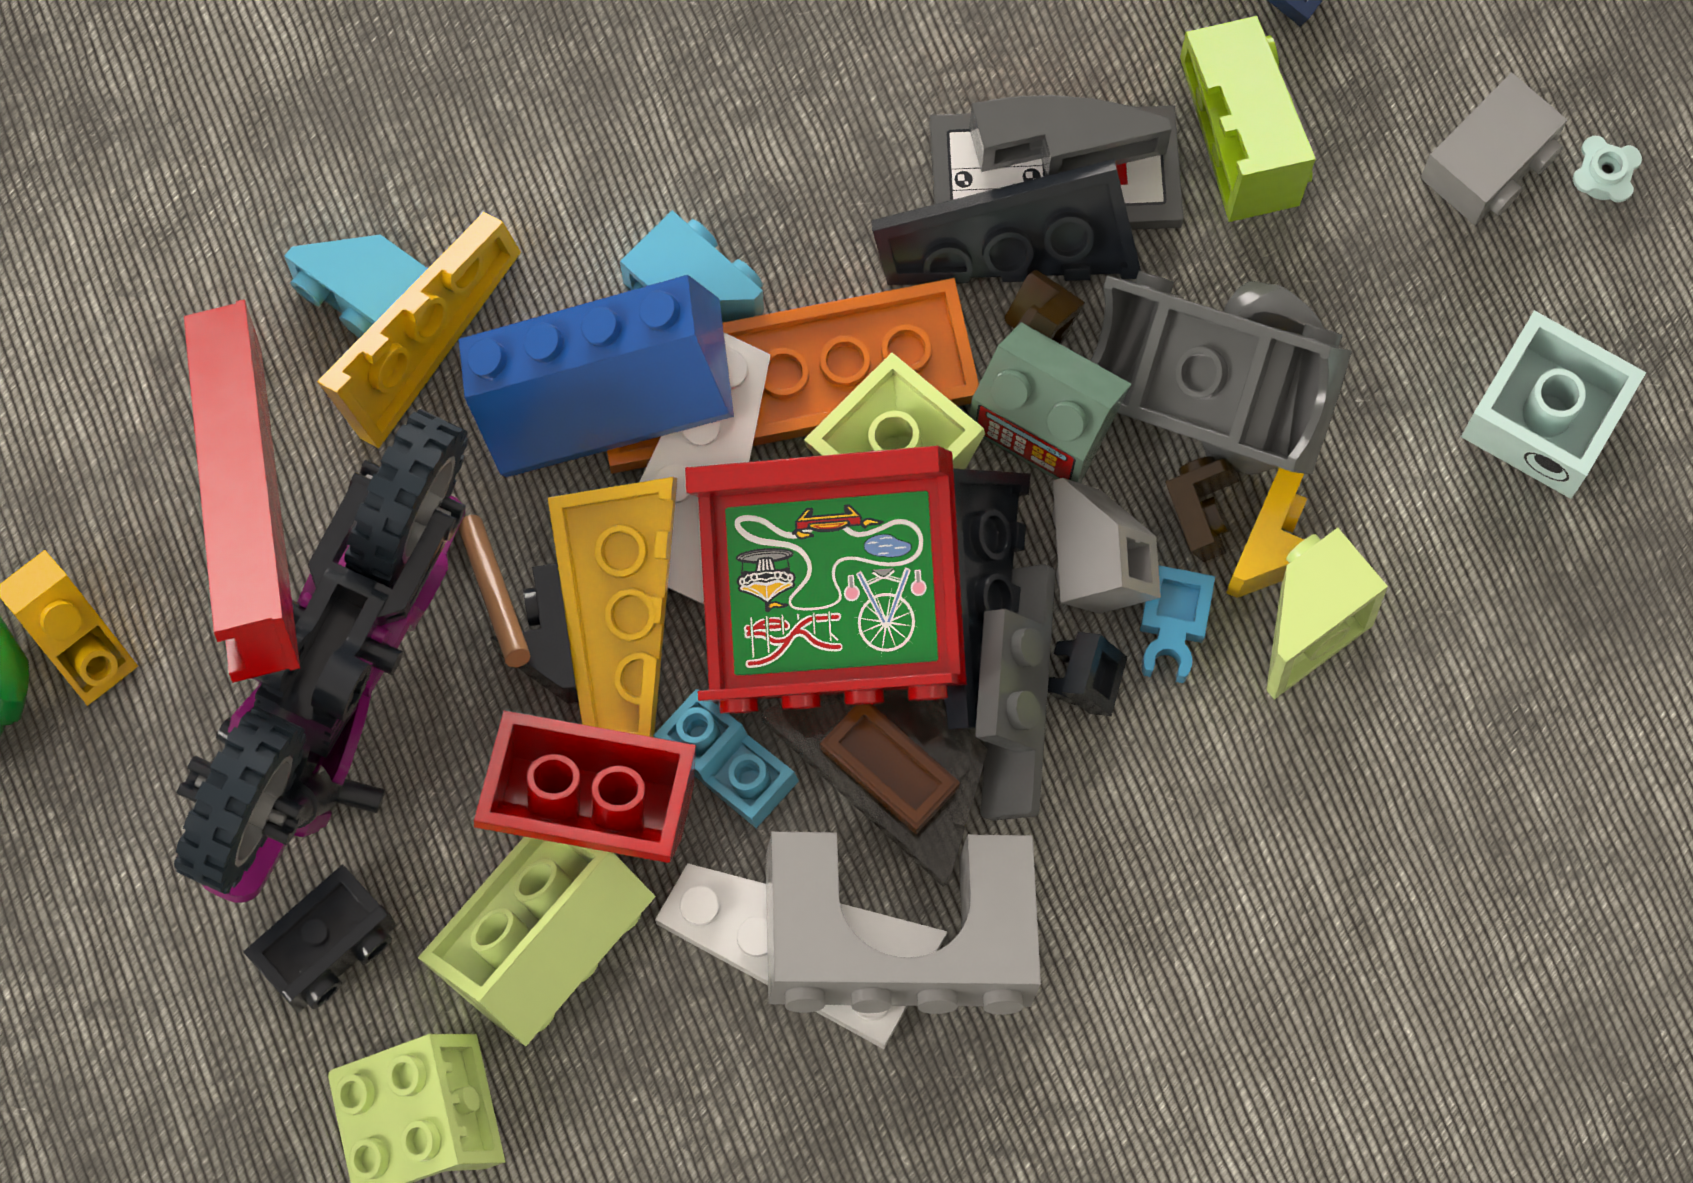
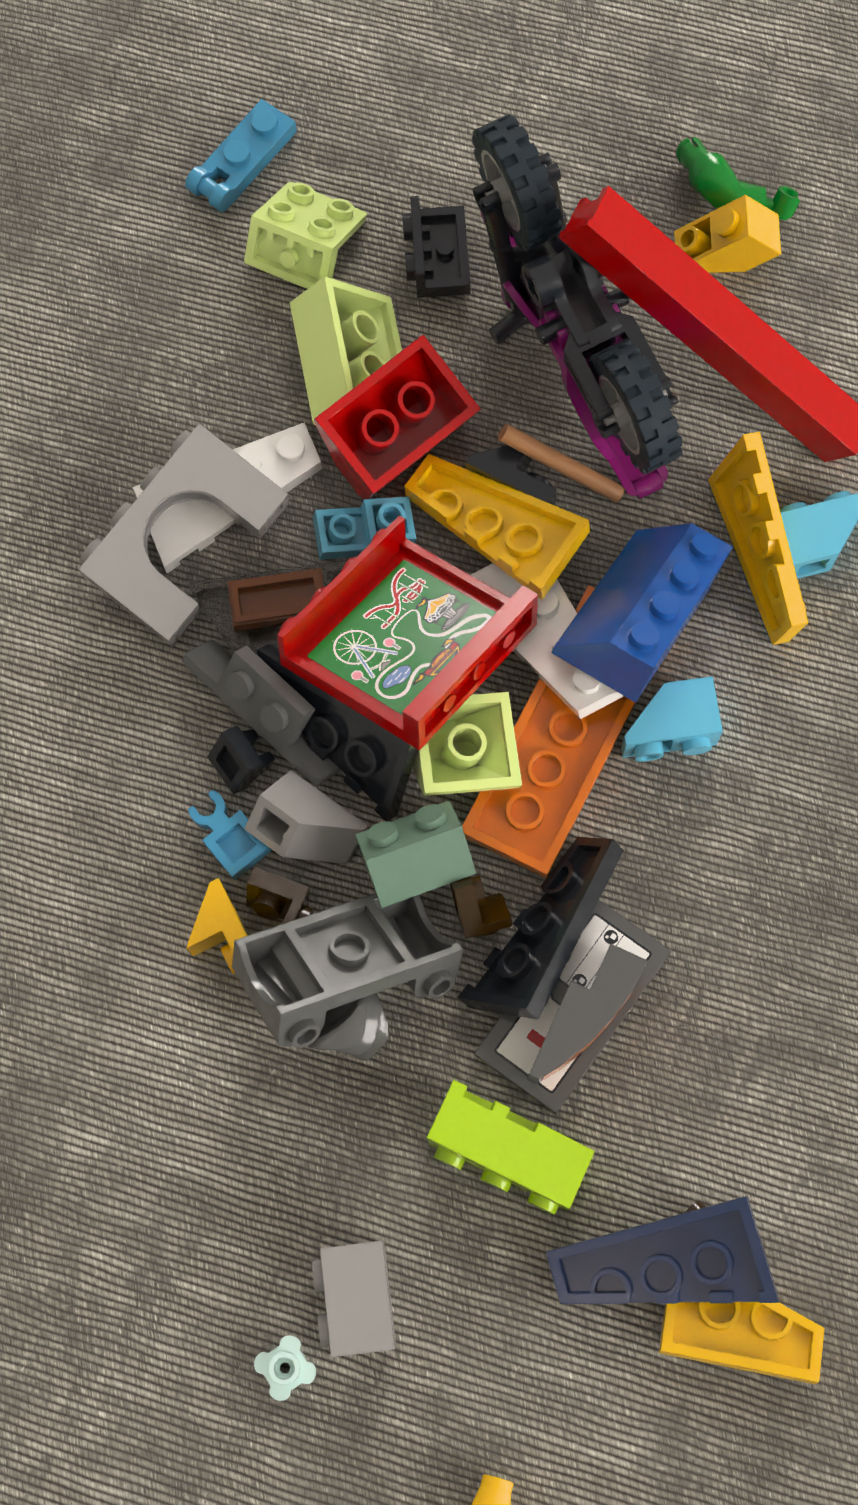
camera: 135 degrees right, 0 degrees up
(1323, 606) = (153, 909): yellowish green slope -> none
(1553, 404) = (156, 1175): light aqua brick -> none

